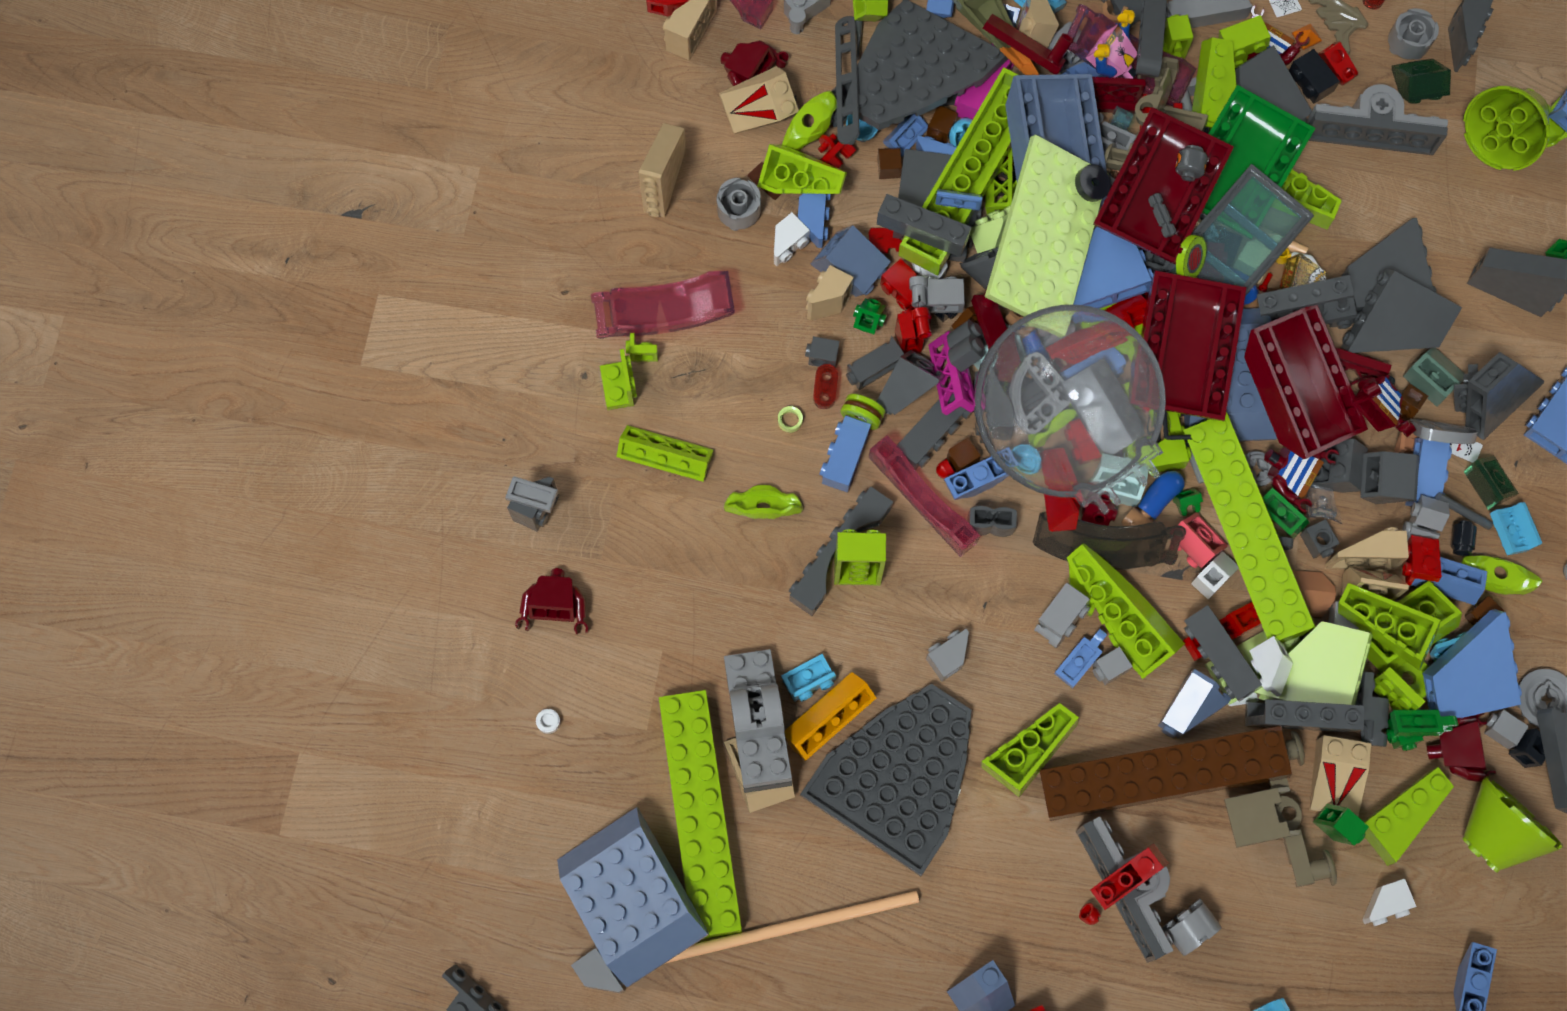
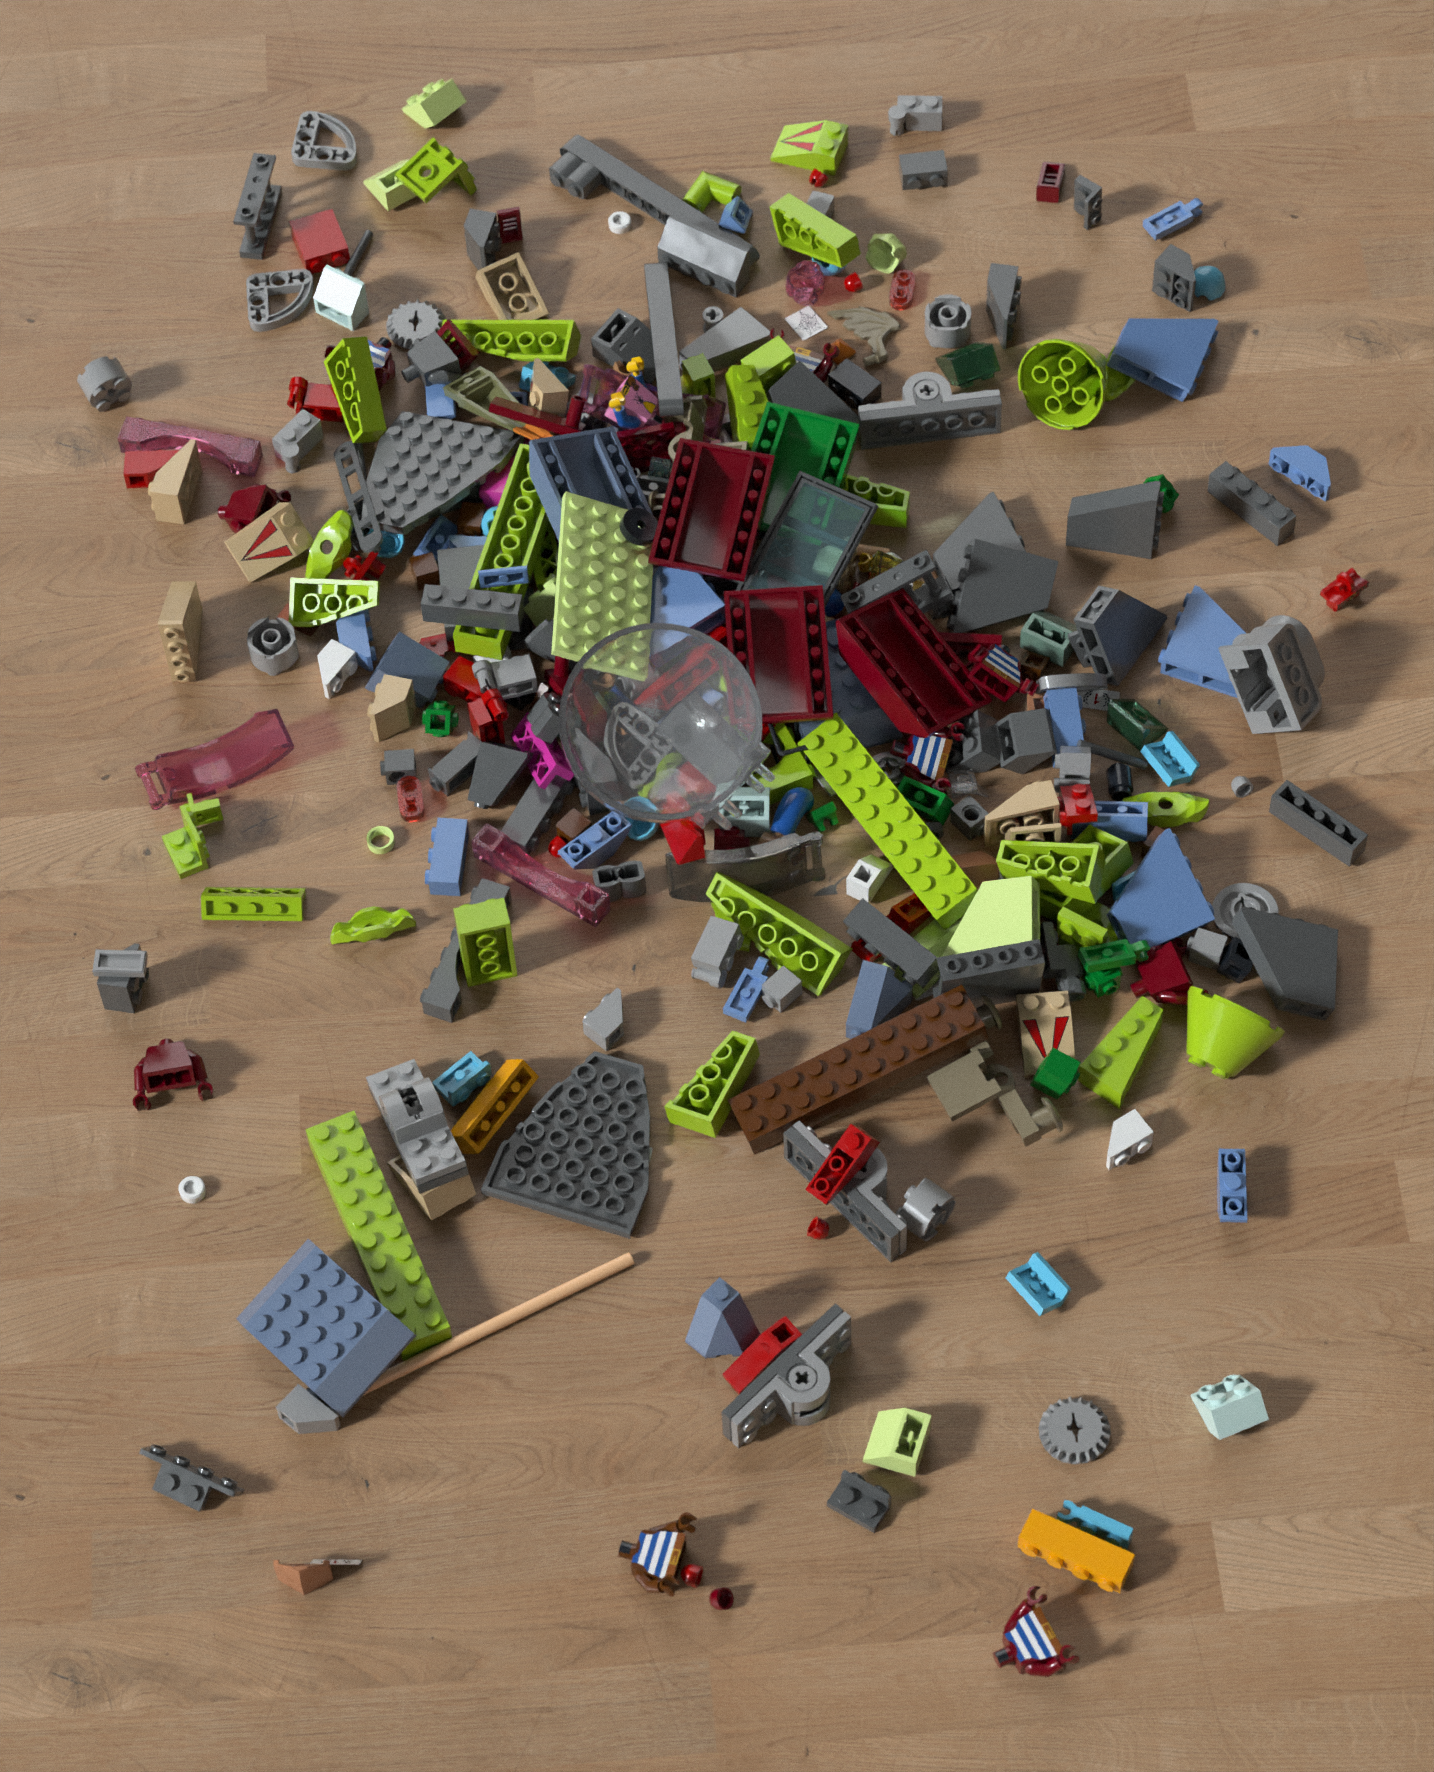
camera: 10 degrees left, 15 degrees down
(863, 409) = (457, 806): lime head -> none
(1162, 215) = (716, 536): dark grey axle -> none
(1191, 163) = (733, 479): dark grey head -> none
(1193, 256) = (759, 569): lime tile -> none
(1200, 542) = (842, 848): coral brick -> none
(1273, 664) = (942, 934): white slope -> none
(1339, 62) = (878, 366): red leg -> none

